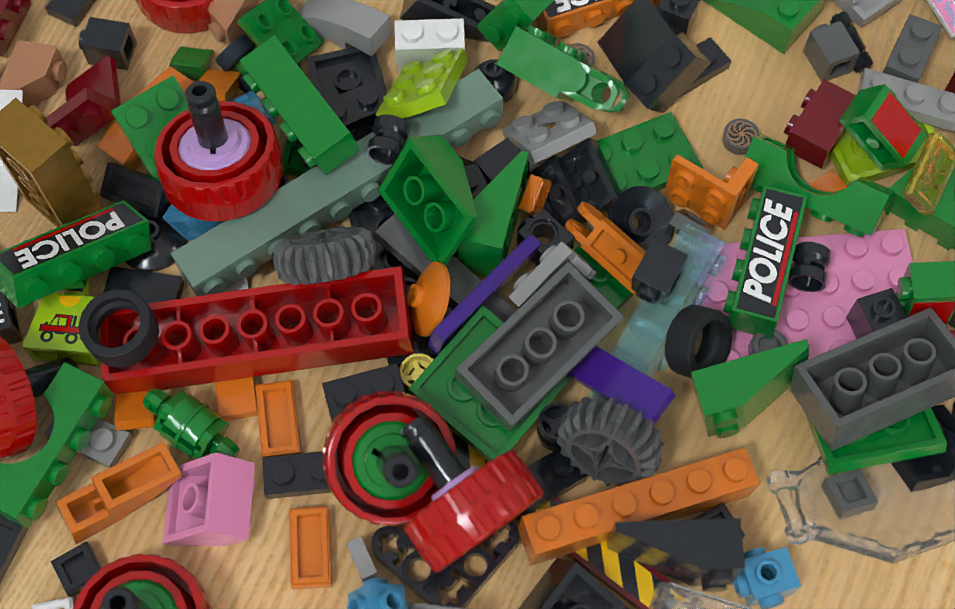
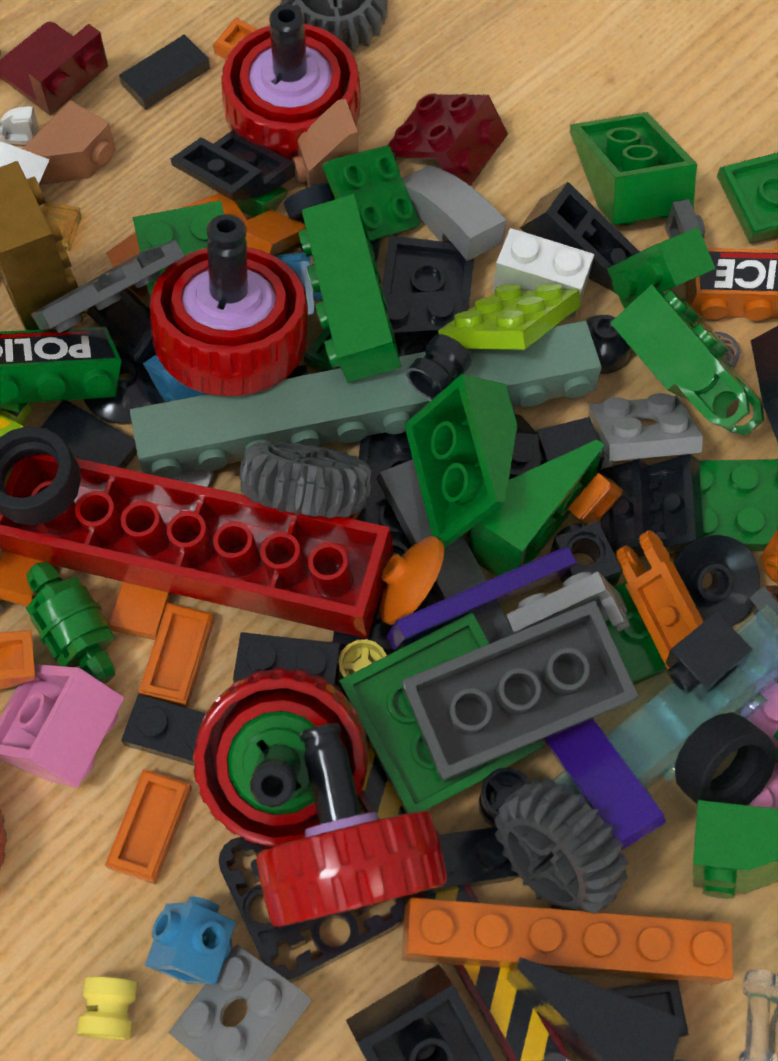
camera: 20 degrees right, 0 degrees up
(88, 102) = (109, 208): dark red bracket -> none
(110, 39) = (166, 134): black brick -> none
(117, 168) = (106, 288): none -> dark grey wing
(167, 46) = (234, 166): none -> black slope
(362, 559) = (201, 869): light grey tile -> none

